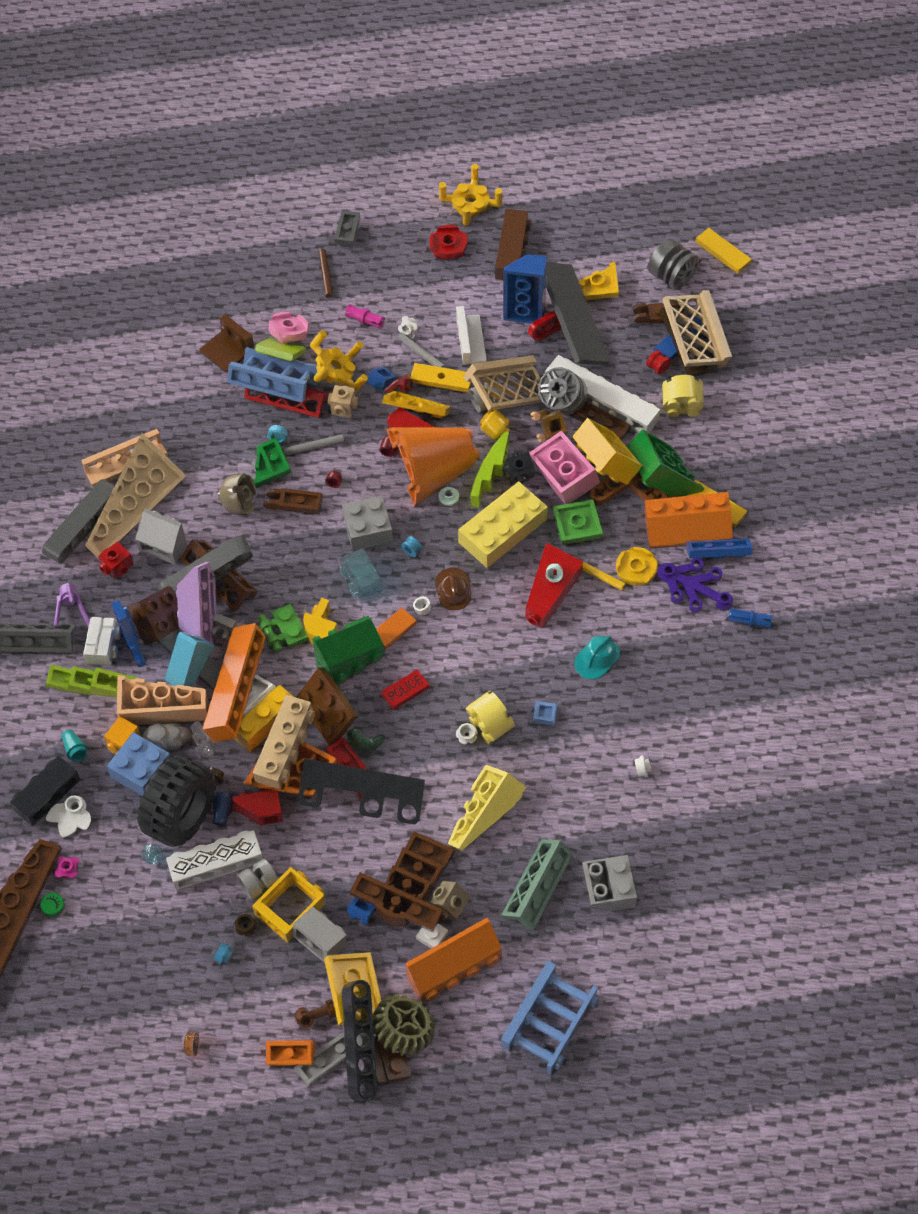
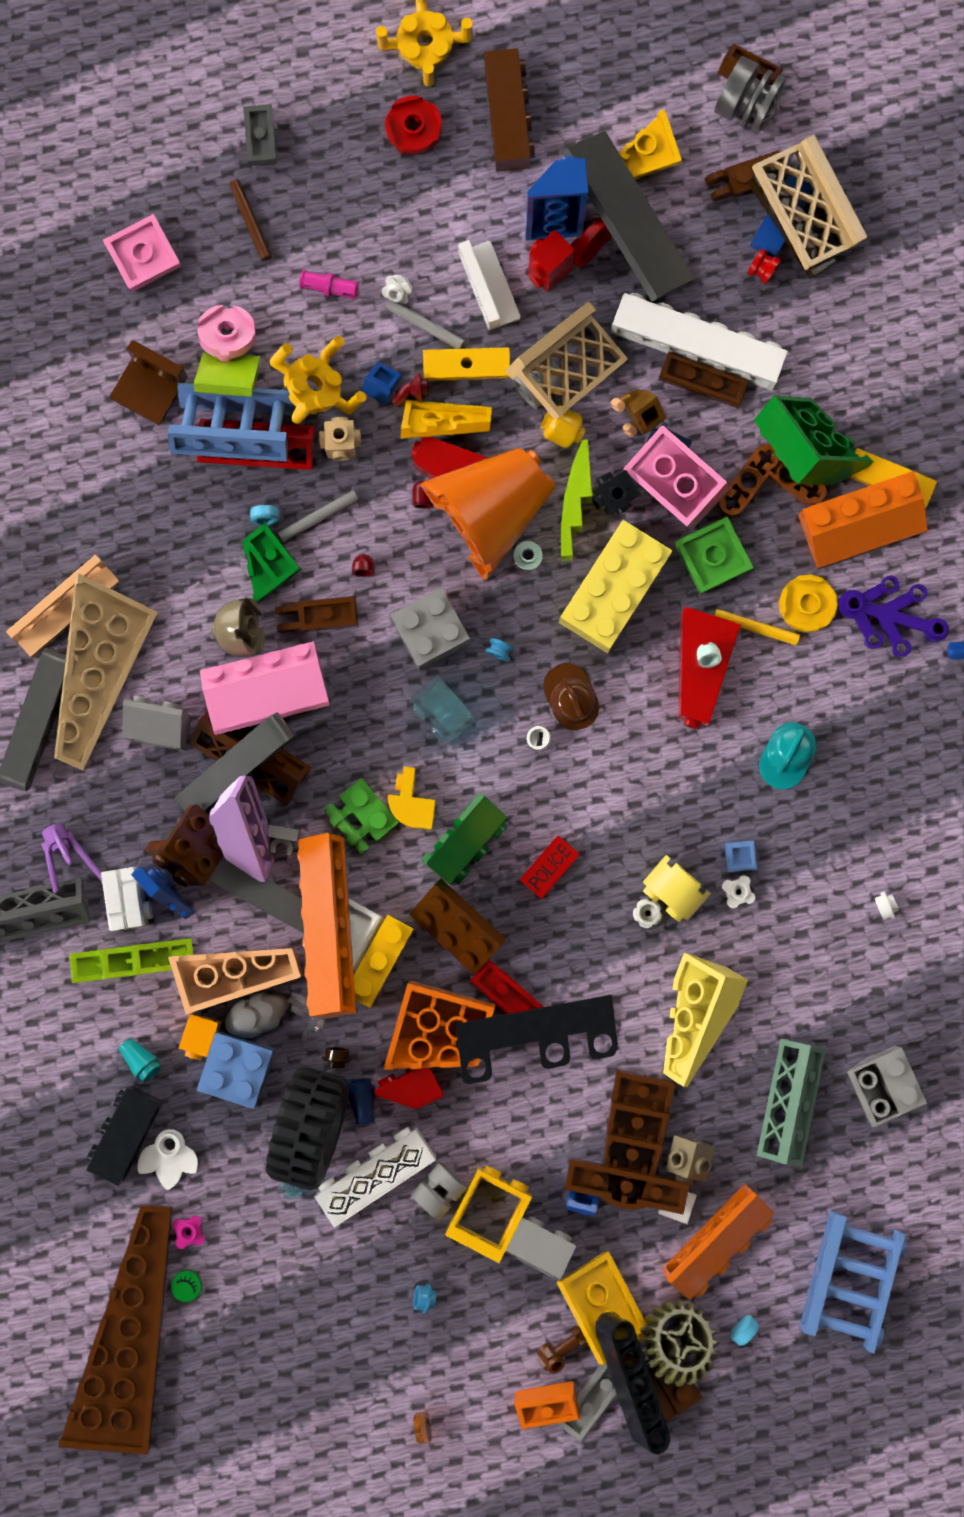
camera: 15 degrees left, 25 degrees up
(115, 560) = (114, 774): red brick -> none
(187, 659) = (255, 908): medium azure slope -> none
(245, 919) = (448, 1251): dark brown plate -> none
(249, 276) = (142, 253): none -> bright pink plate
(260, 528) = (265, 684): none -> bright pink slope
(283, 741) = (421, 1008): tan brick -> none
(362, 743) = (515, 963): clear green hair -> none
(395, 627) = (509, 778): orange tile -> none
(457, 1033) = (744, 1330): none -> medium azure tile
(514, 328) = (550, 261): none -> red brick
(532, 739) = (746, 895): none -> white plate
(572, 395) = (654, 343): flat silver wheel -> none
(606, 452) = (733, 445): yellow brick -> none
(683, 396) = (814, 319): light yellow brick -> none
(719, 548) = (913, 551): blue plate -> none
(723, 250) = (810, 46): yellow tile -> none

